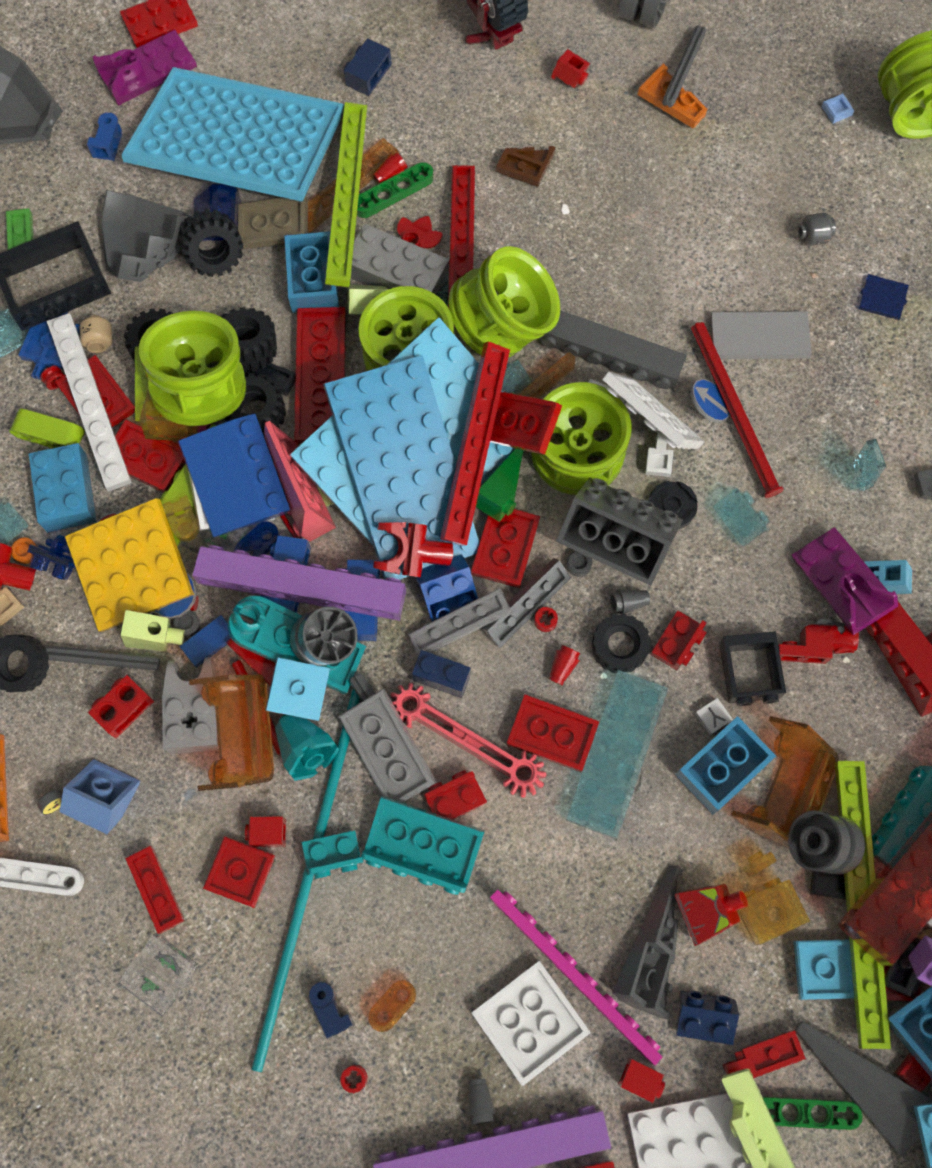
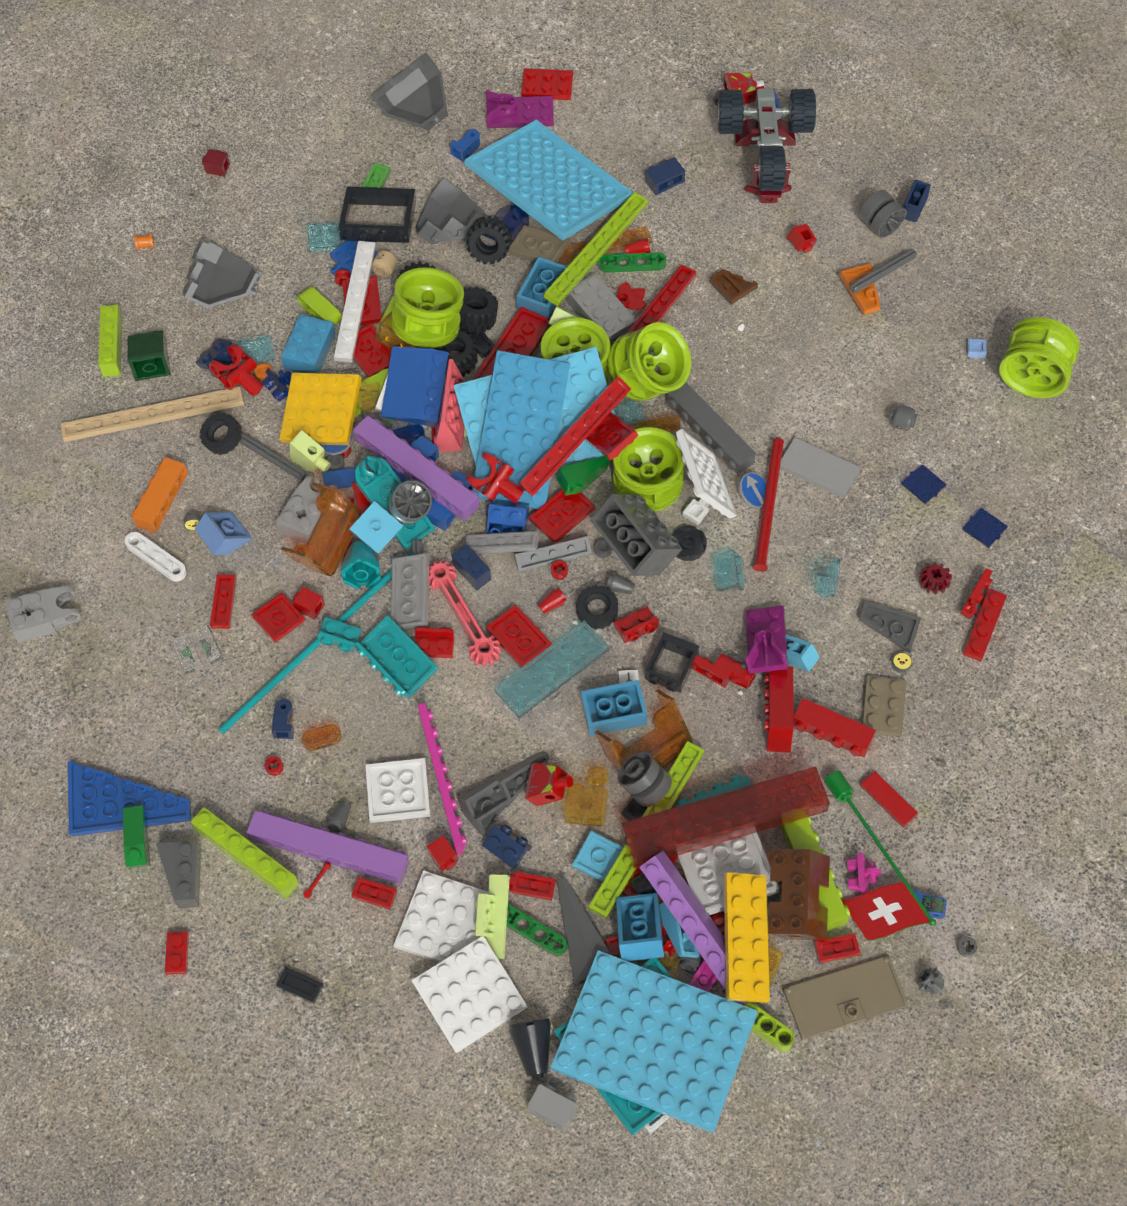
camera: 30 degrees right, 10 degrees down
(125, 711) = (267, 492): red brick -> none

